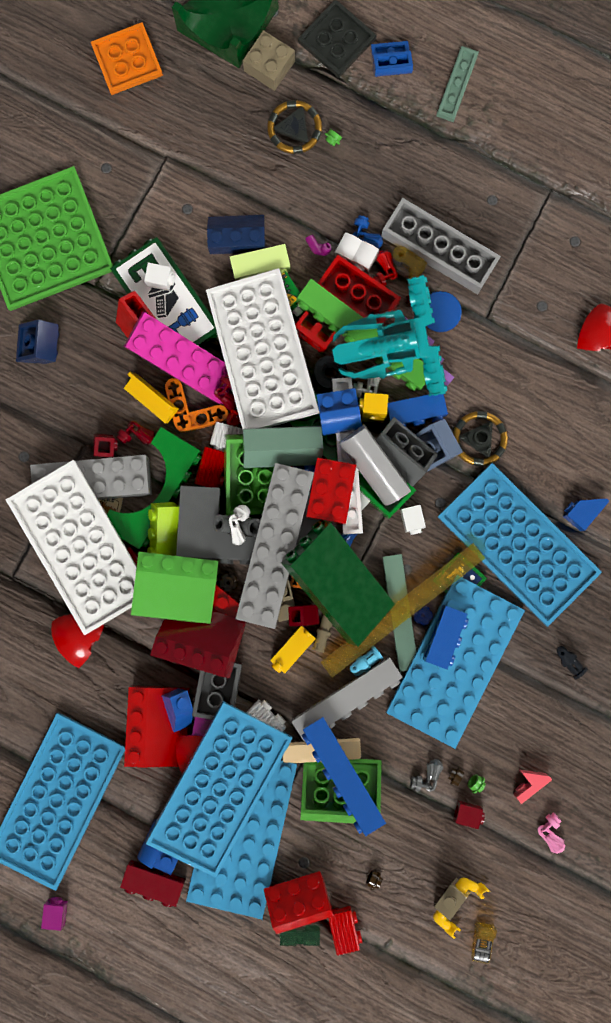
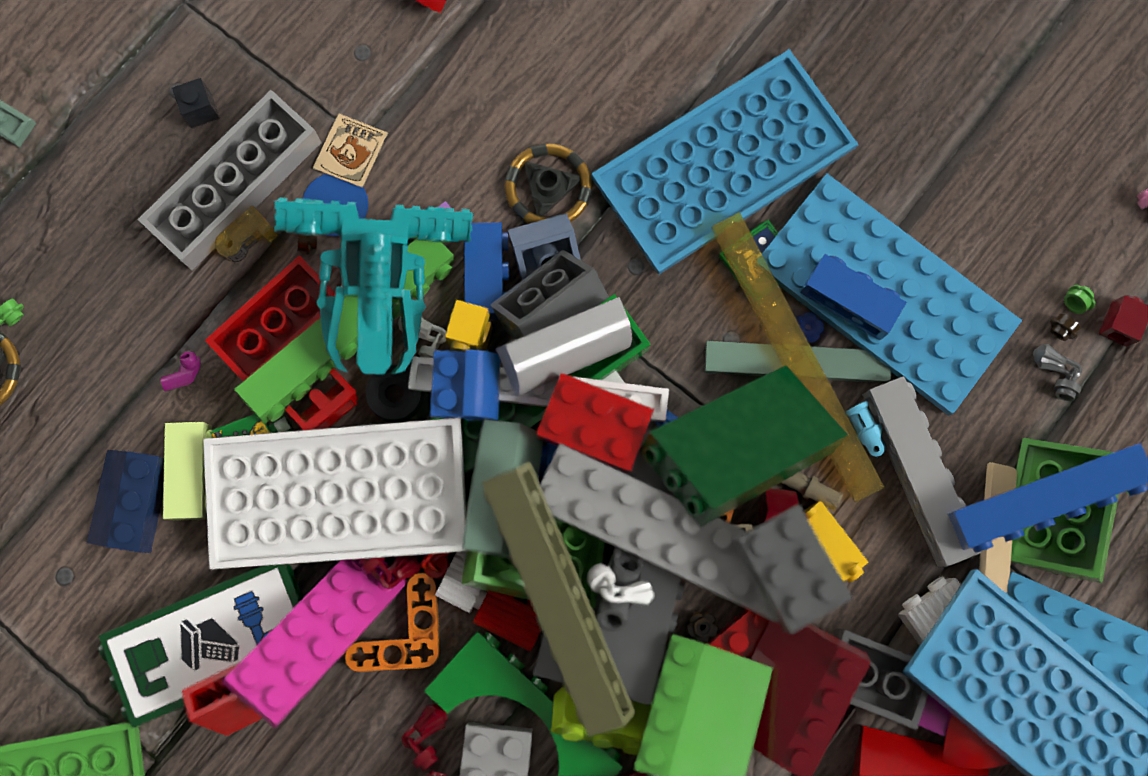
camera: 90 degrees left, 5 degrees down
(150, 397) = (370, 699): yellow panel -> none
(159, 276) = (168, 643): white brick -> none
(178, 708) = (897, 750): blue slope -> none
(225, 489) = (558, 599): none -> olive brick
(265, 618) = (792, 569): none -> dark grey brick
(357, 252) = (206, 311): white brick -> none
(373, 239) = (194, 285): blue piece -> none
(384, 258) = (231, 271): red piece -> none
(413, 519) = (656, 311): white brick -> none
(477, 313) = (350, 150): none -> tan sticker
(485, 213) = (195, 103): none -> black brick
(535, 782) = (1090, 210): coral slope -> none
(569, 658) = (913, 126): black piece -> none
(584, 512) = (694, 55): blue slope -> none

